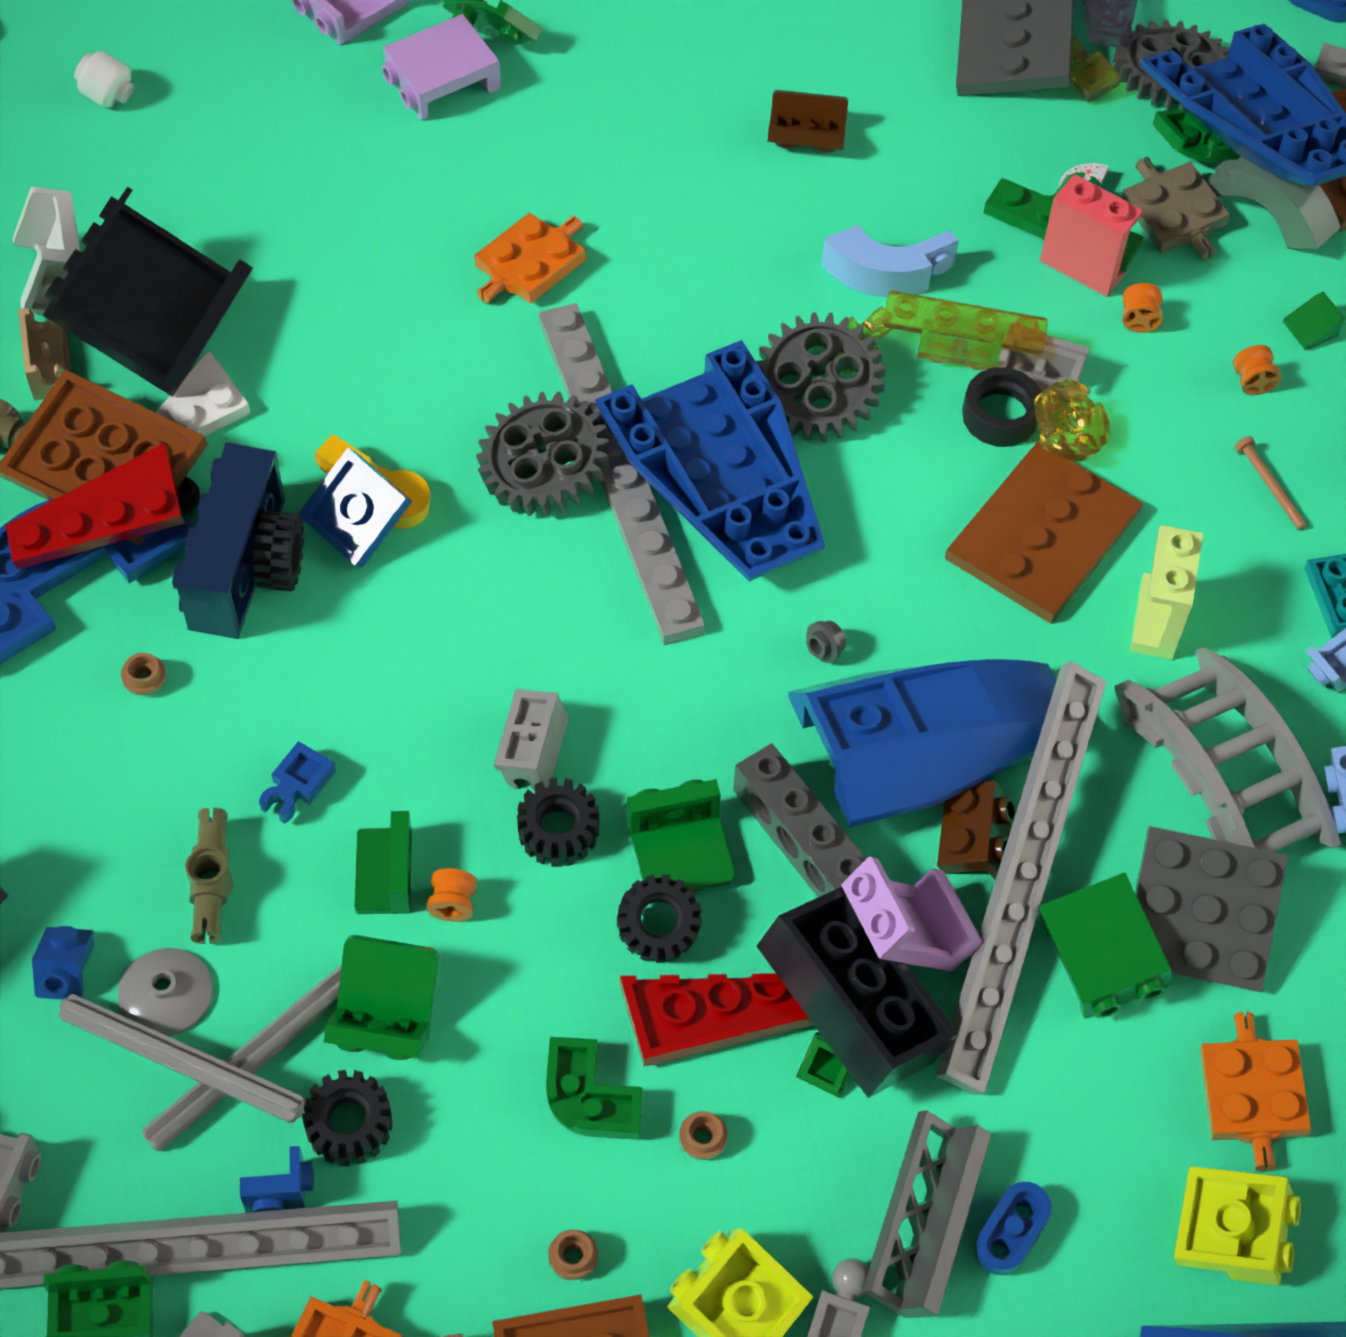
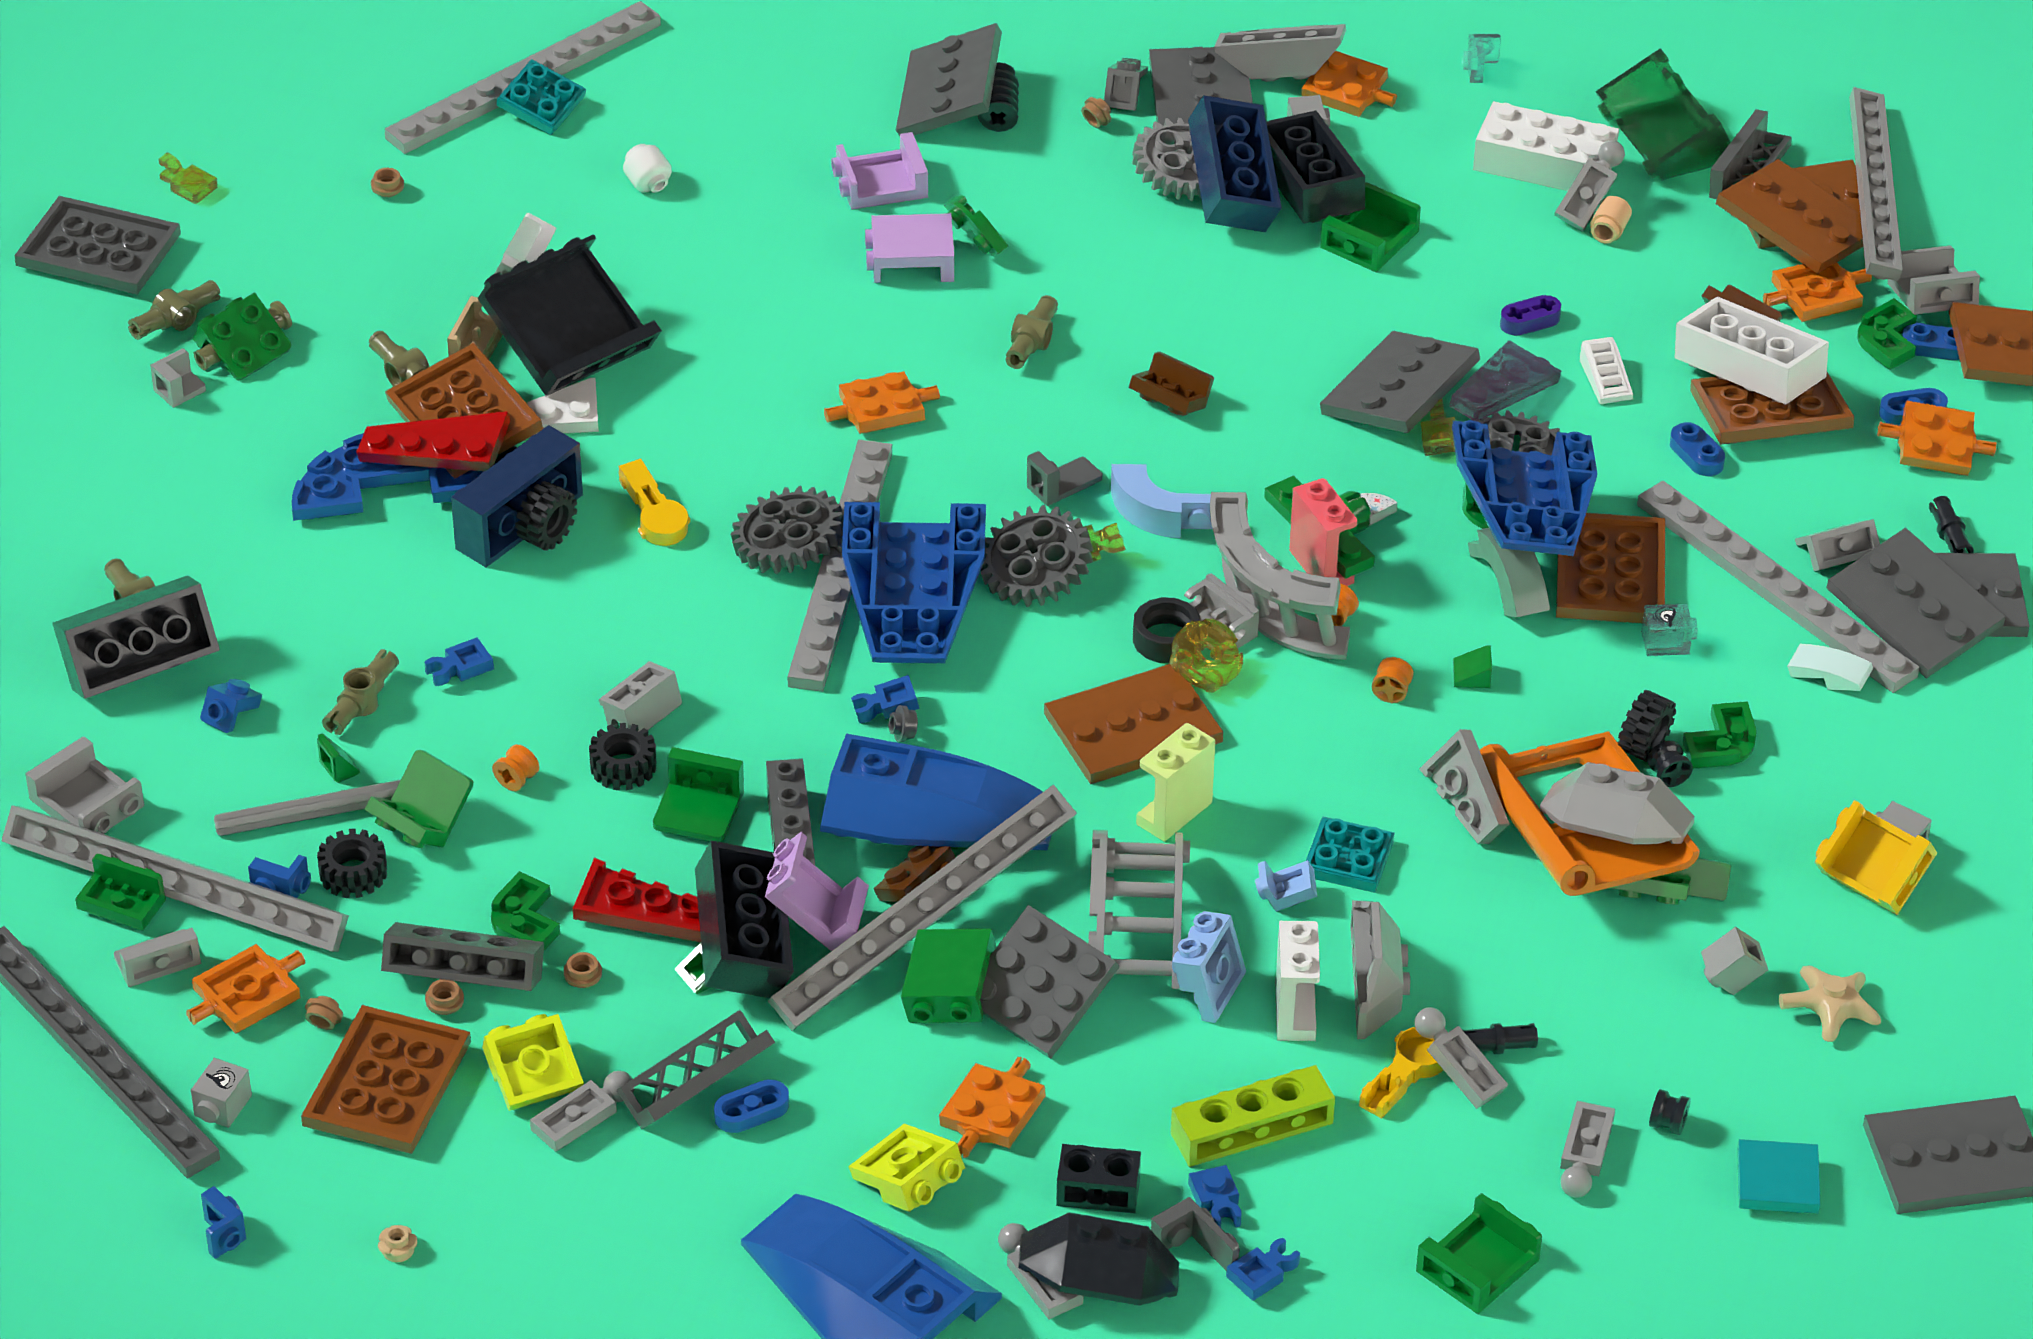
camera: 30 degrees right, 15 degrees down
(143, 664) = (402, 559): medium nougat plate -> none
(170, 1009) = (285, 751): light grey dish -> none
(182, 1058) = (266, 782): light grey axle -> none
(236, 980) = (335, 760): none -> green slope
(355, 508) = (621, 510): plate -> none
(384, 867) = (486, 736): green panel -> none
(567, 1192) = (462, 956): none -> dark grey brick
(626, 116) = (1031, 332): none -> olive pin
(662, 890) = (642, 817): black tyre -> none
(772, 277) = (1056, 483): none -> dark grey bracket
(788, 614) = (885, 700): none -> blue plate
(963, 331) = (1168, 564): clear yellow bracket -> none
(1121, 332) = (1274, 589): none -> light grey fence
(1177, 207) = (1430, 551): dark tan plate -> none
(1245, 446) = (1342, 729): nougat piece -> none

